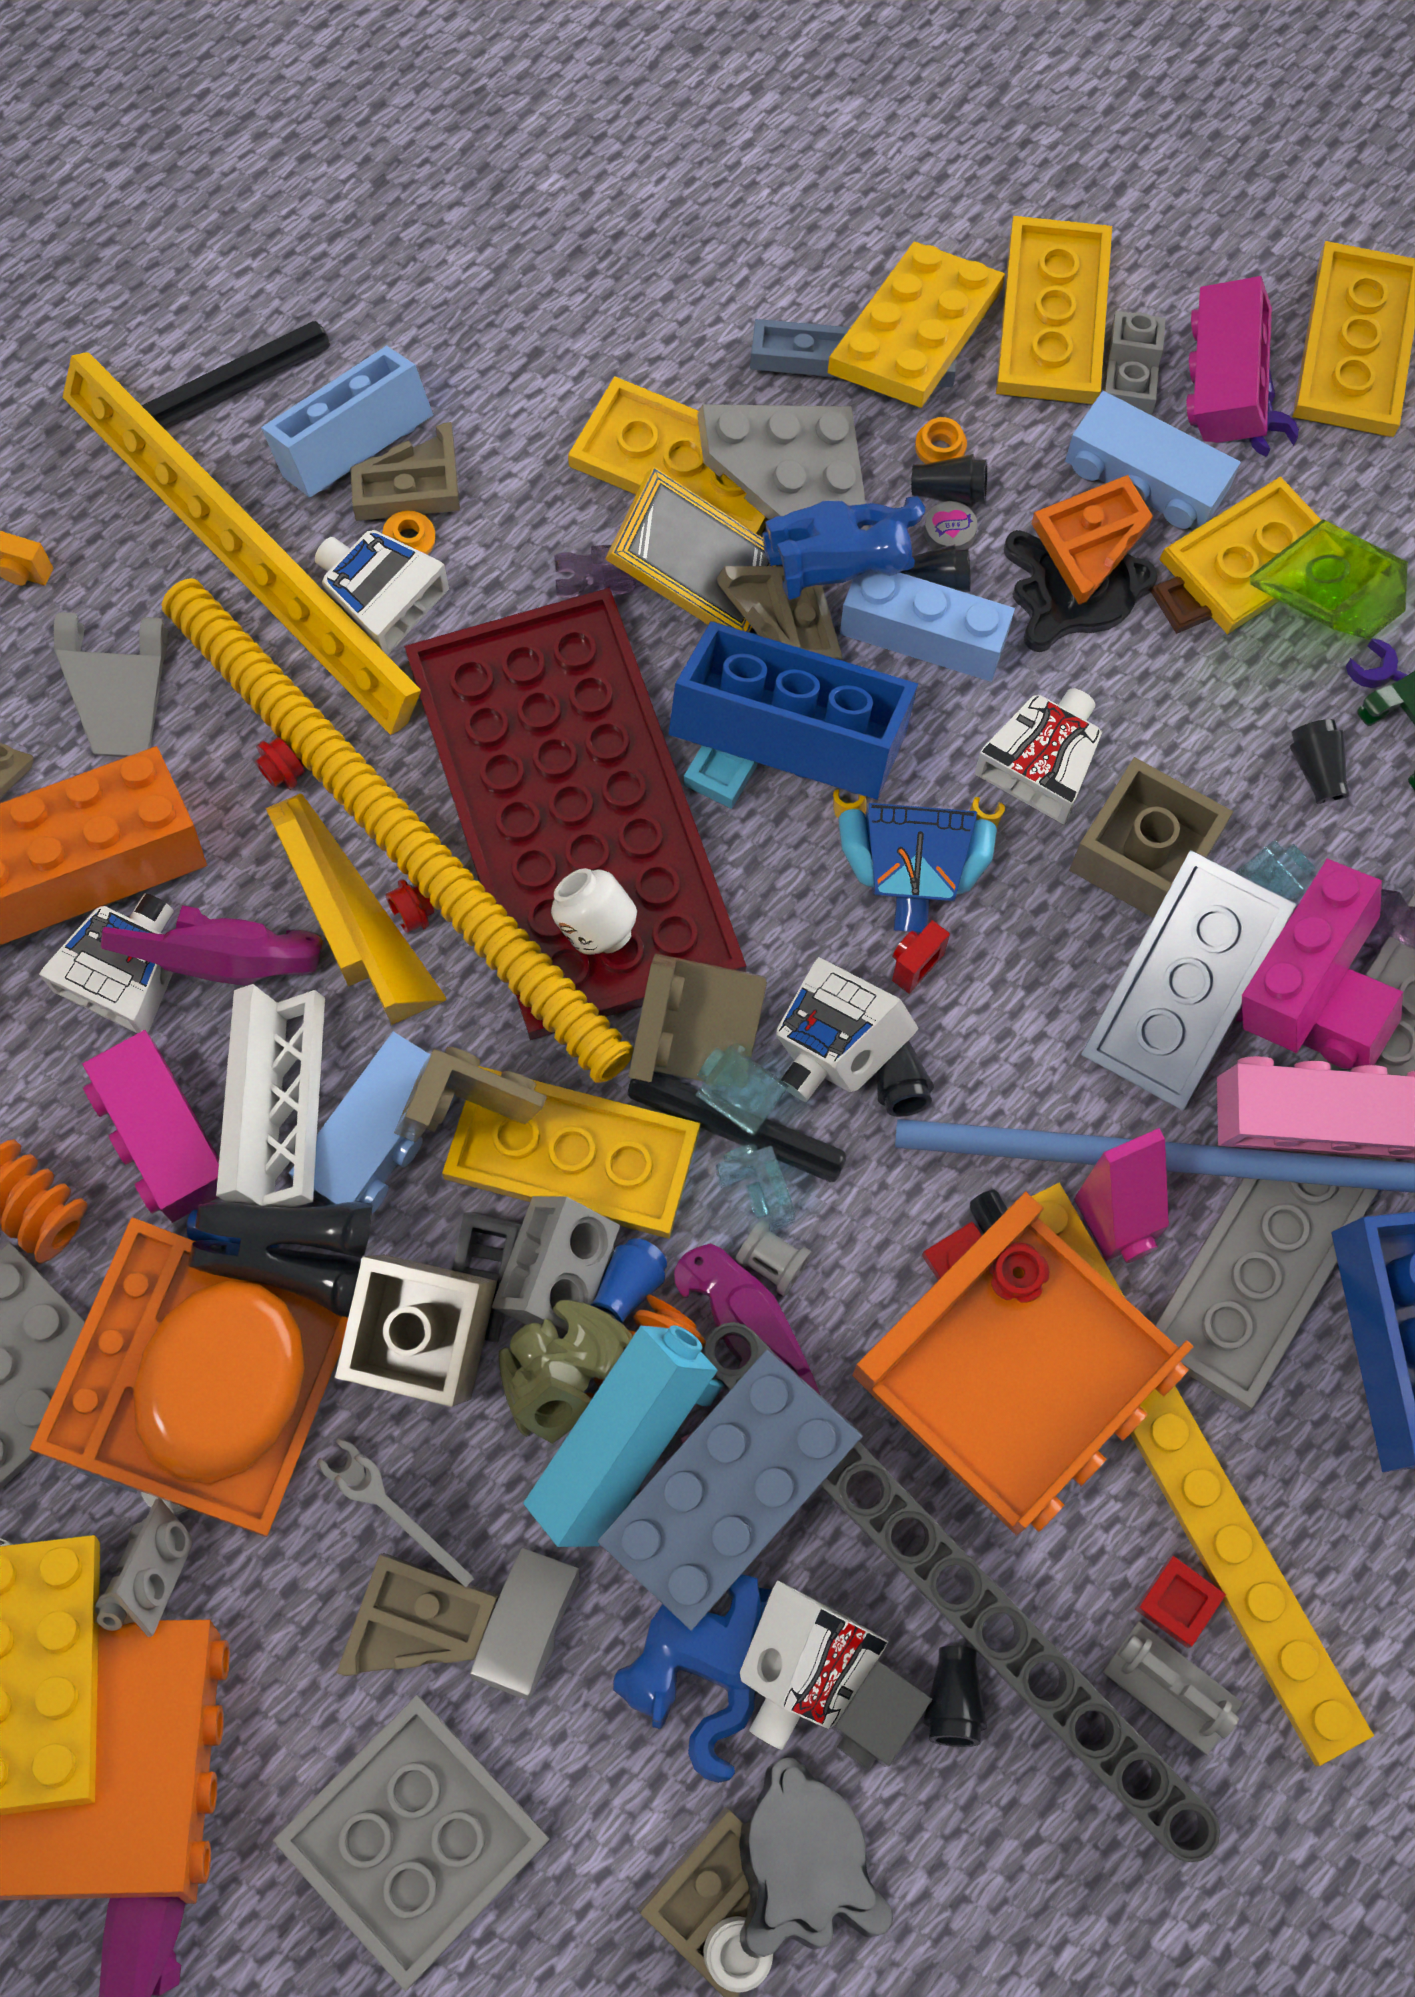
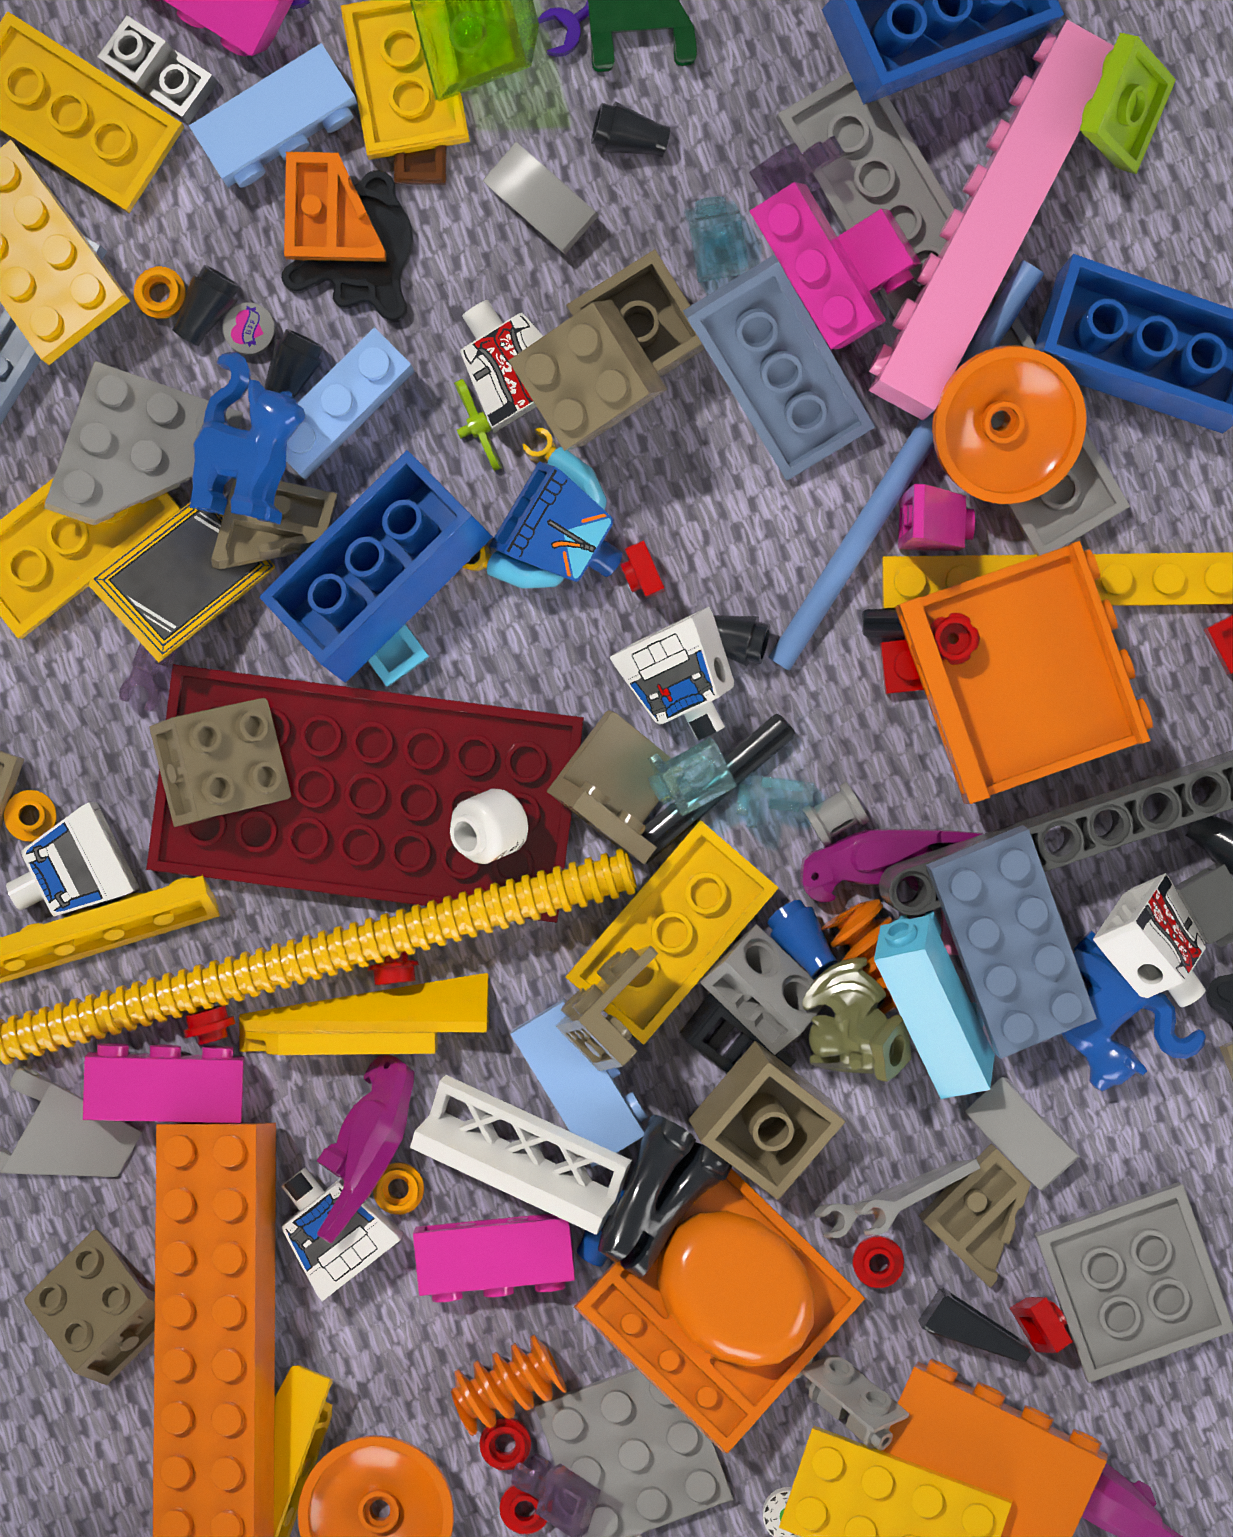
camera: 65 degrees left, 20 degrees up
(178, 996) = (404, 1204): none -> light orange plate
(200, 745) = (163, 1084): none -> dark pink brick
(283, 1664) = (959, 1321): none -> black slope
(320, 1752) = (1042, 1324): none -> red plate
(330, 1543) = (866, 1250): none -> red plate
(541, 657) = (220, 761): none -> dark tan bracket
(969, 755) = (476, 425): none -> lime piece
(1082, 794) = (587, 374): none -> dark tan brick
(1215, 711) = (540, 198): none -> light grey slope
(1312, 1231) = (1039, 430): none -> orange dish

